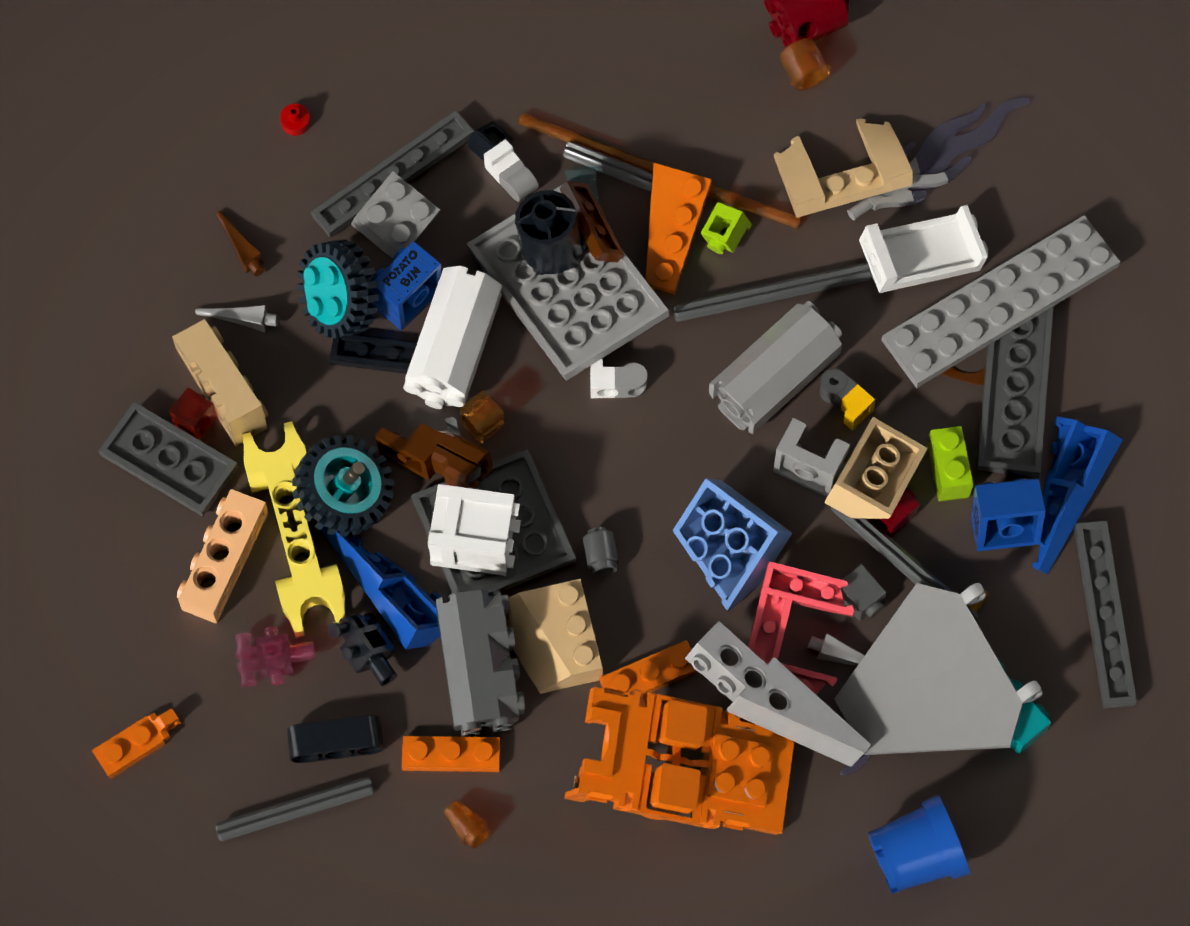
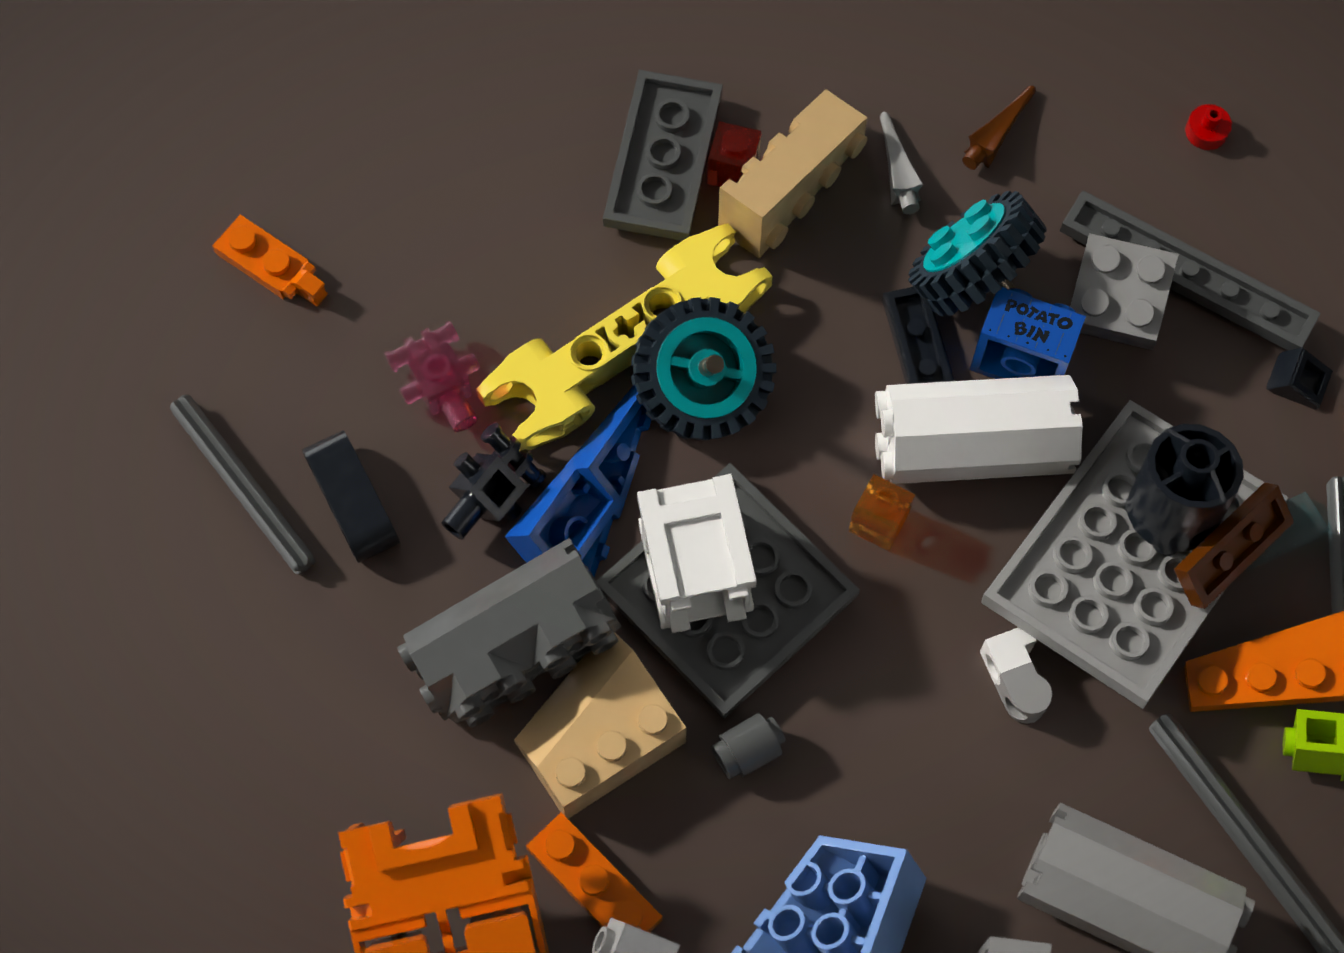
camera: 70 degrees right, 0 degrees up
(210, 601) = (534, 280): light nougat brick -> none
(437, 452) = (799, 478): reddish brown plate -> none
(451, 754) = (377, 638): orange plate -> none
(468, 825) = (286, 710): clear orange cone -> none
(510, 171) = (1267, 416): leg -> none

